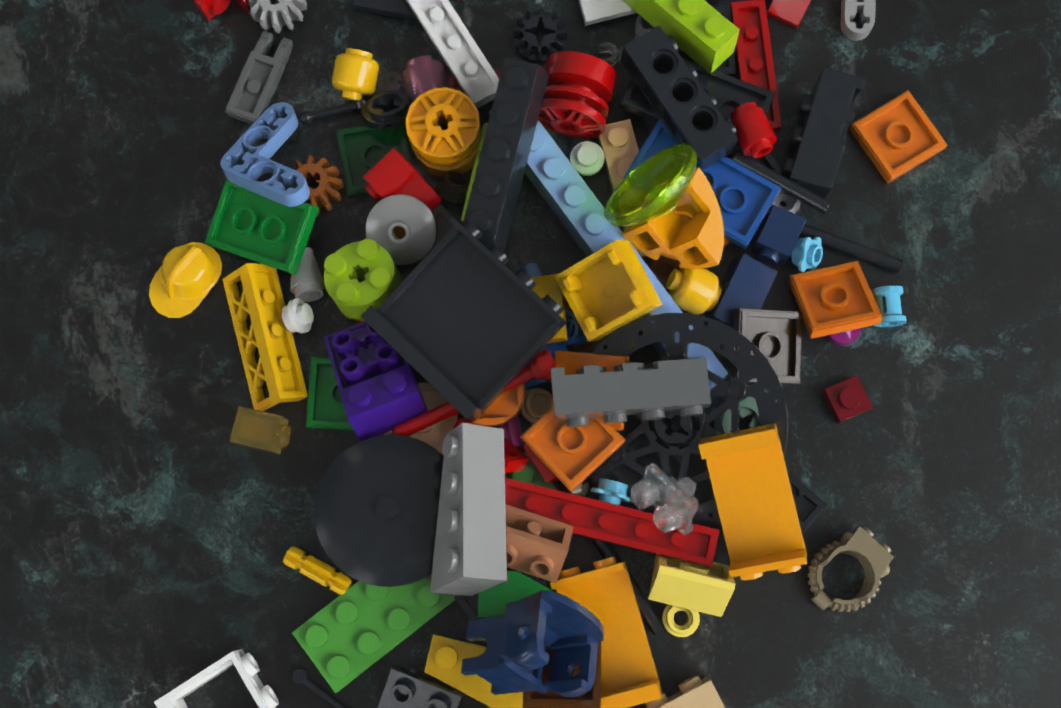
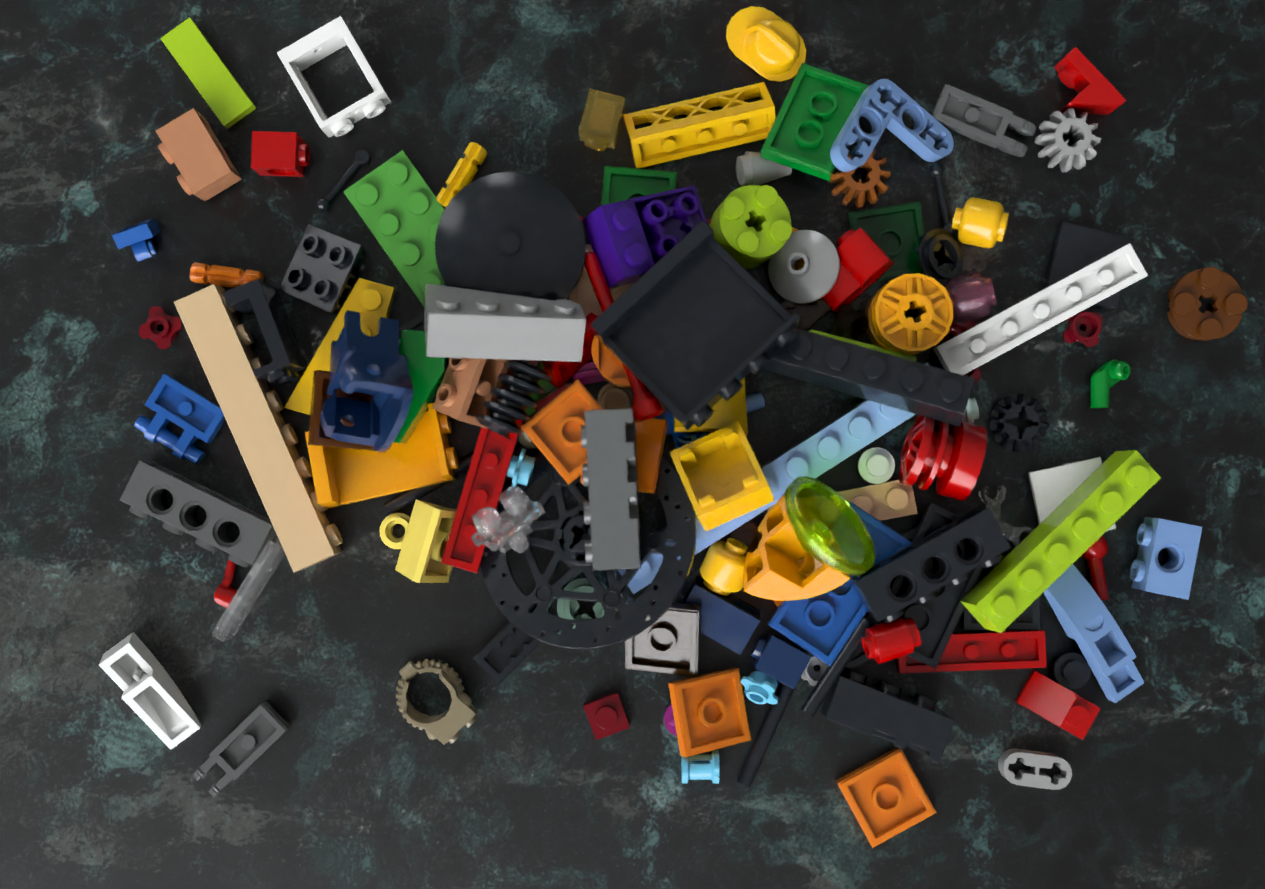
camera: 90 degrees right, 10 degrees up
(297, 316) = (719, 158): white plate -> none
(543, 497) = (513, 398): none -> black piece
(754, 501) = (501, 609): light orange panel -> none

